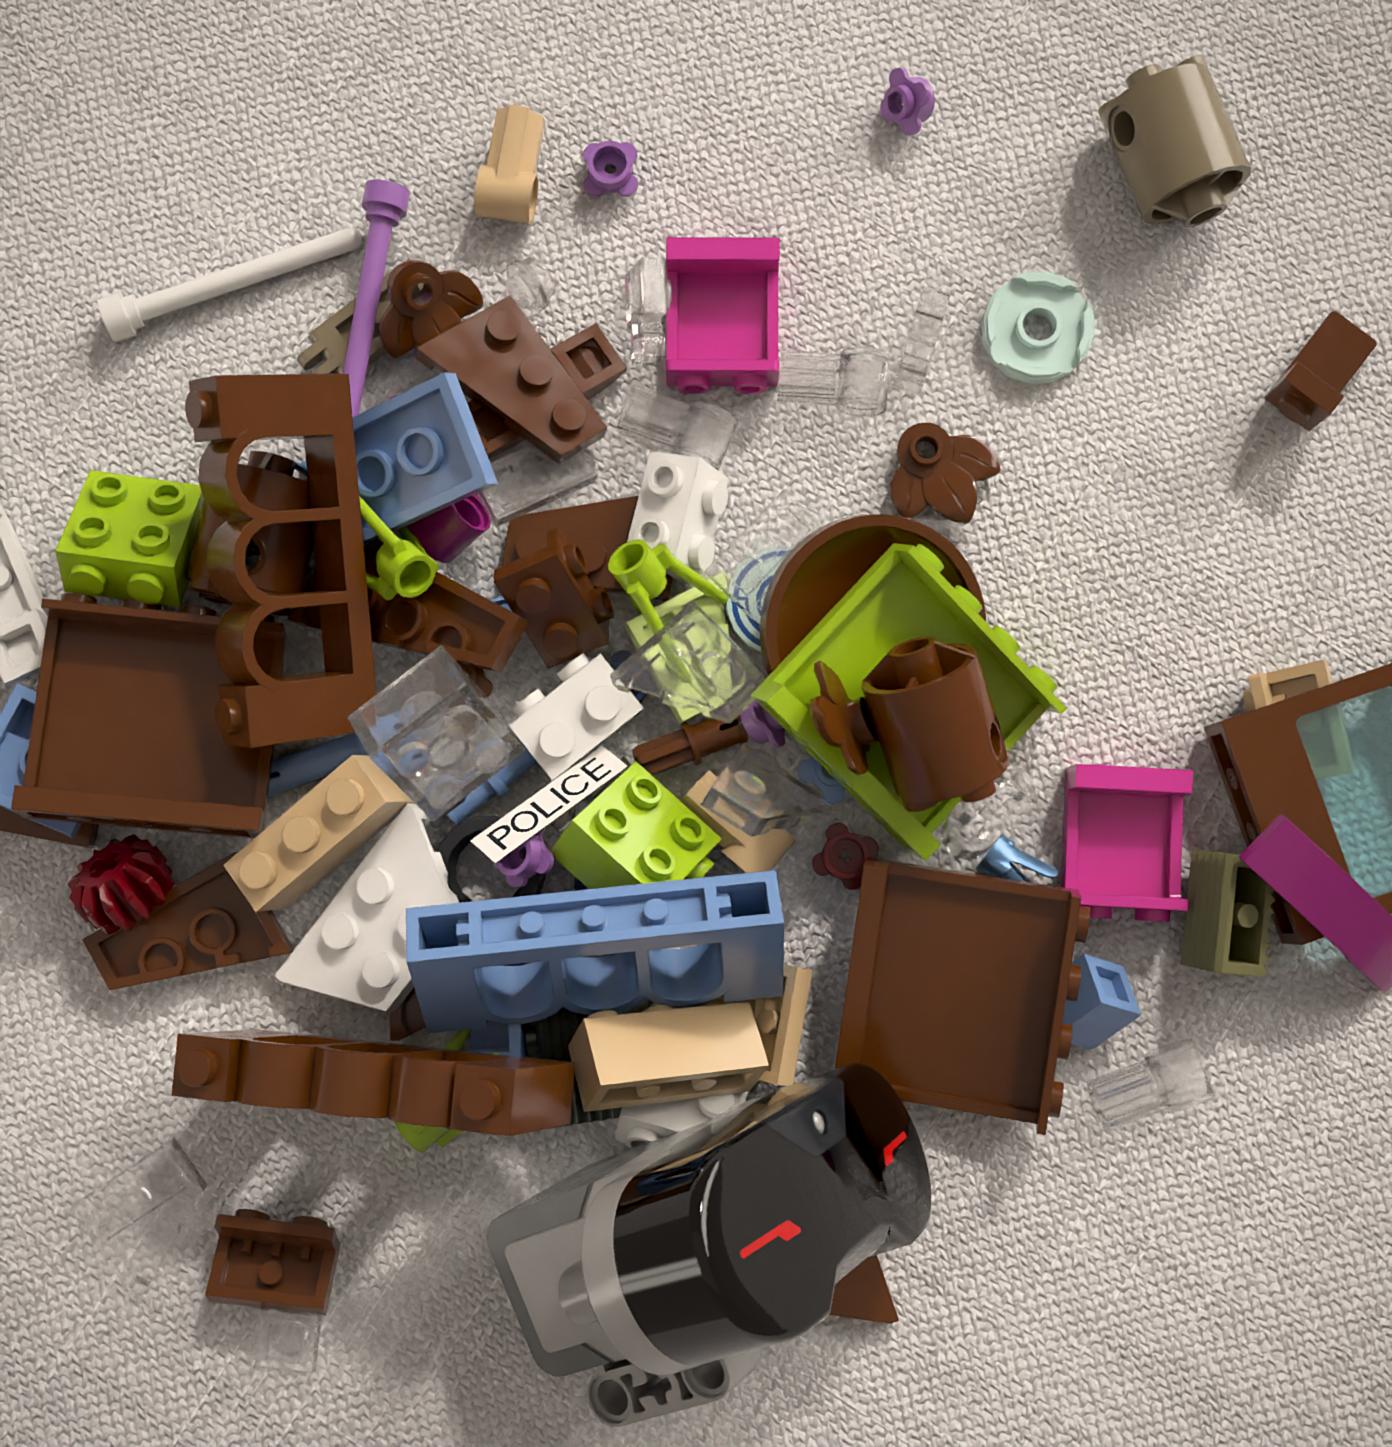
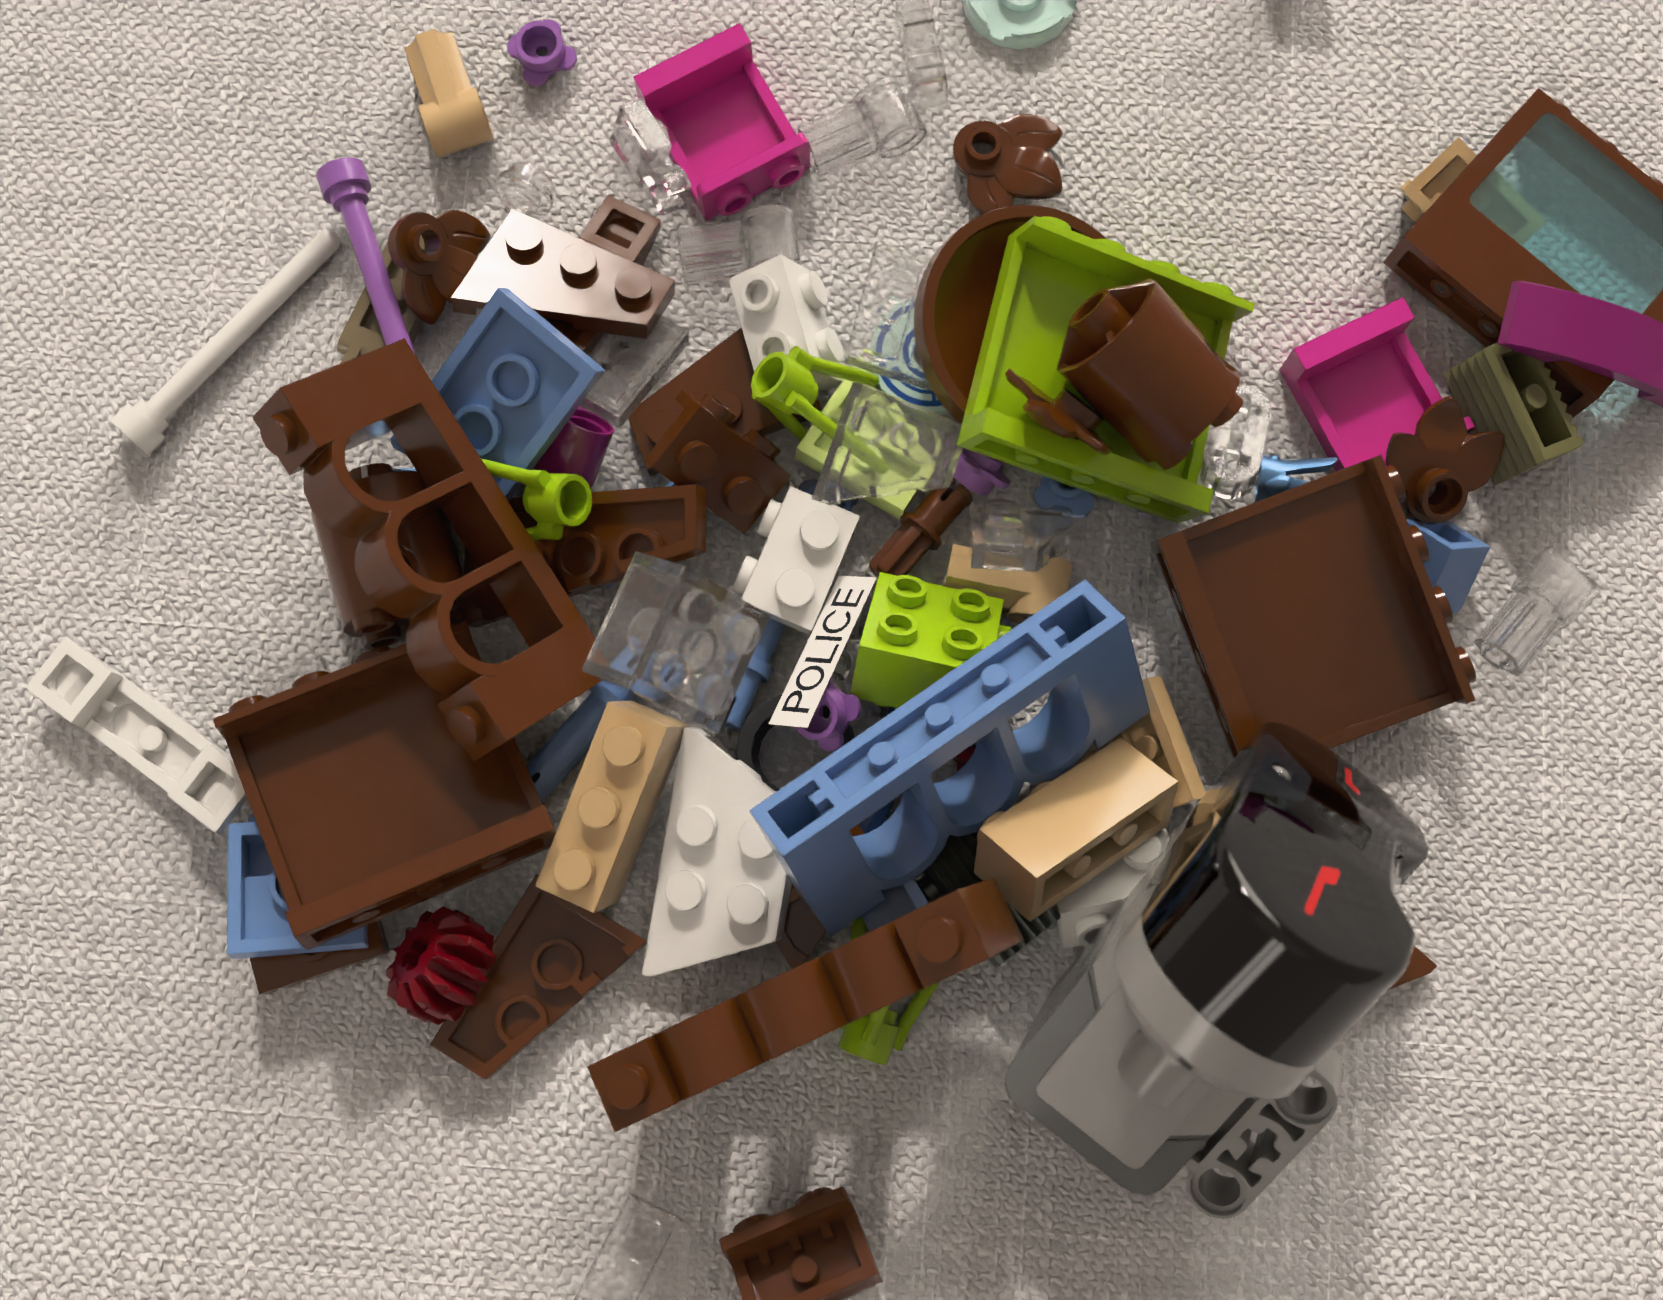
camera: 30 degrees left, 5 degrees down
(130, 538) = (268, 622): lime brick -> none
(840, 840) = (1131, 541): dark red plate -> none
(1144, 920) = (1445, 457): none -> reddish brown plate

